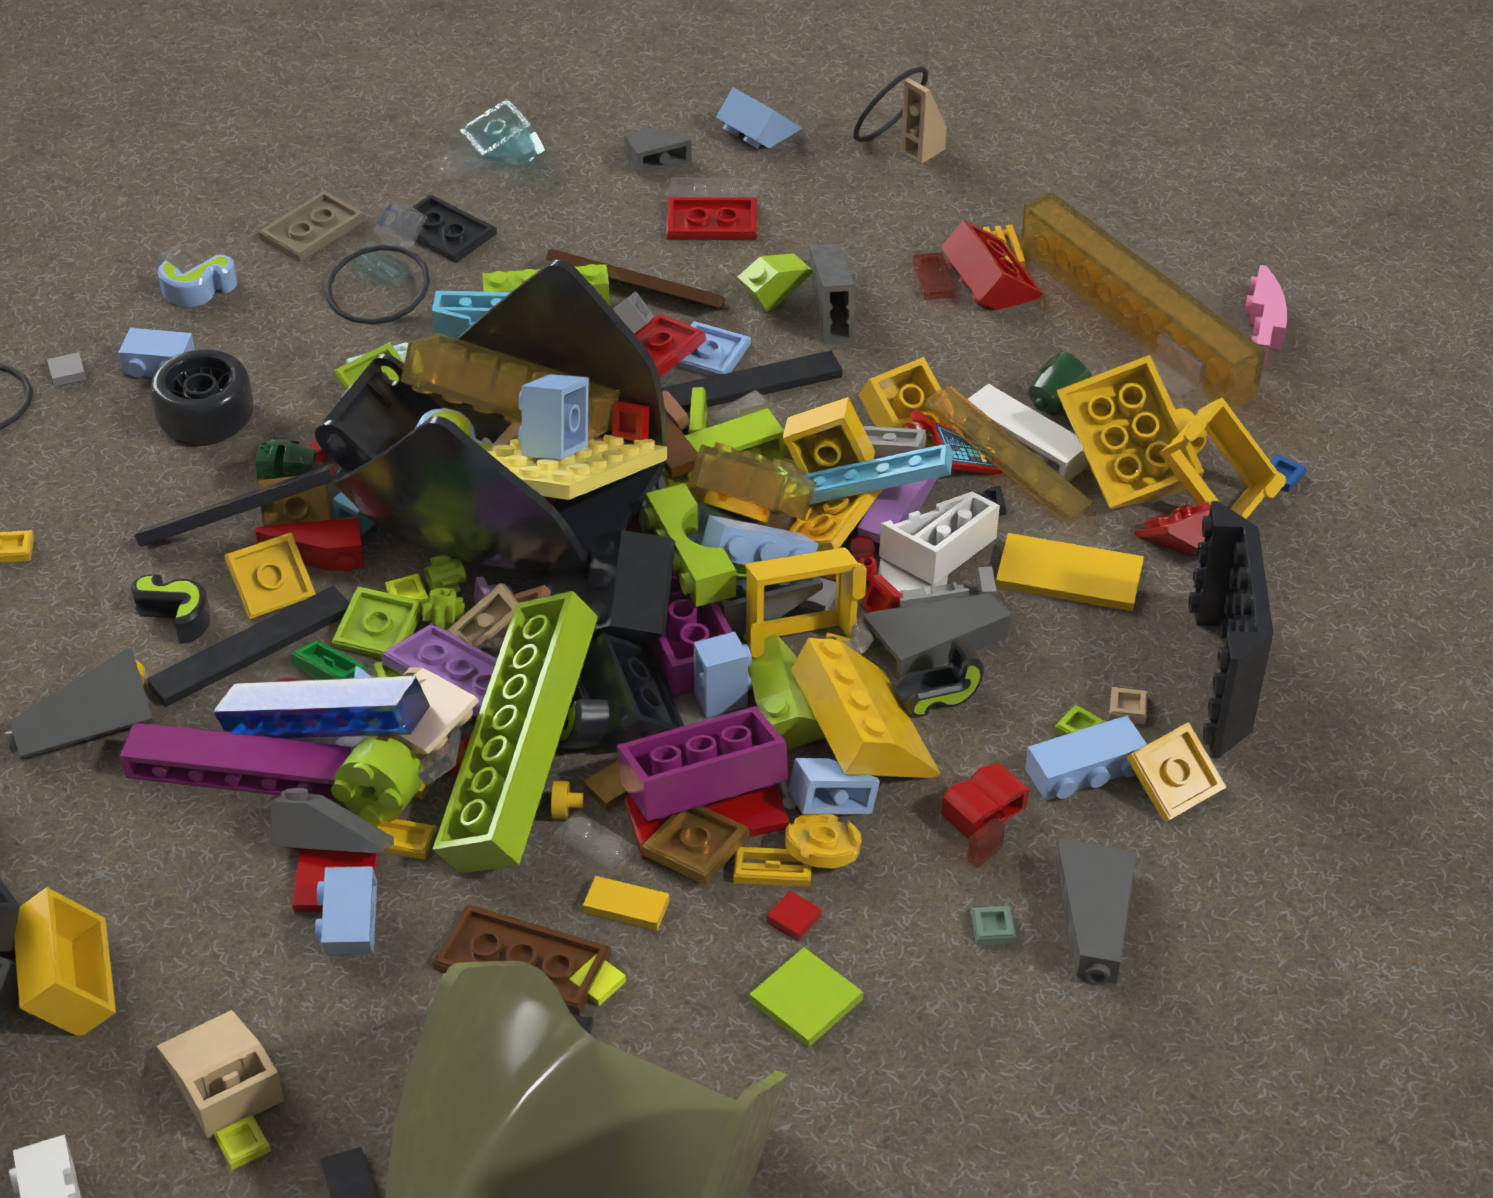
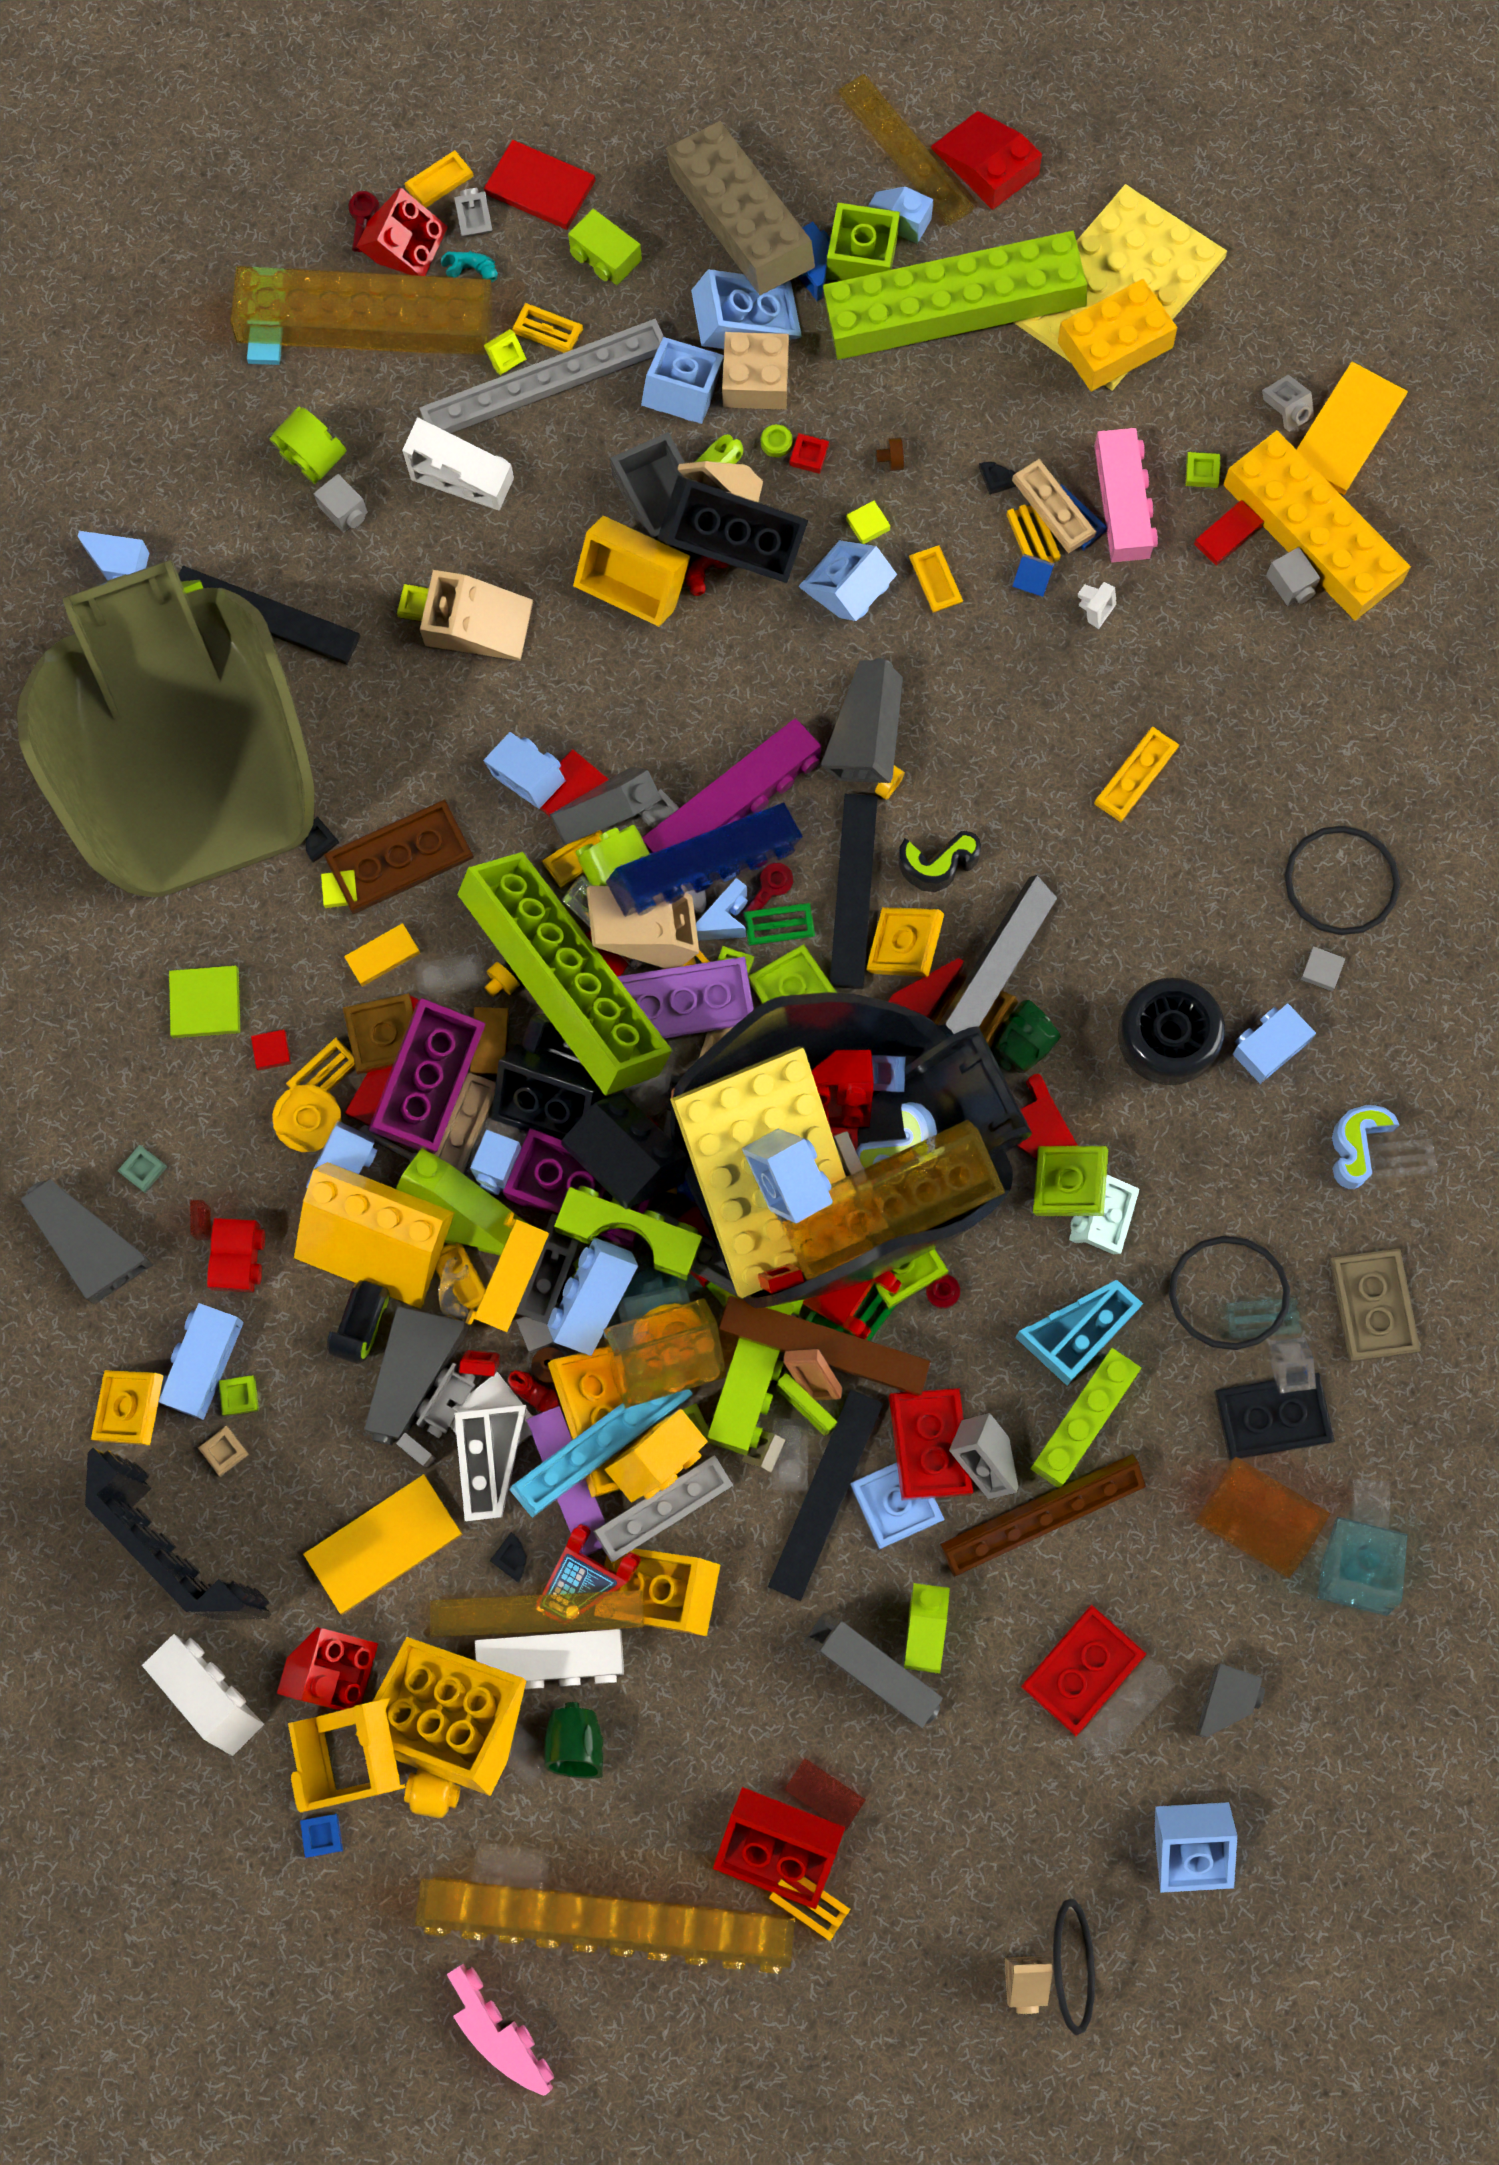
camera: 135 degrees right, 30 degrees up
(518, 193) = (1262, 1517): none -> clear orange slope
(1293, 576) = (202, 1695): none -> white wedge

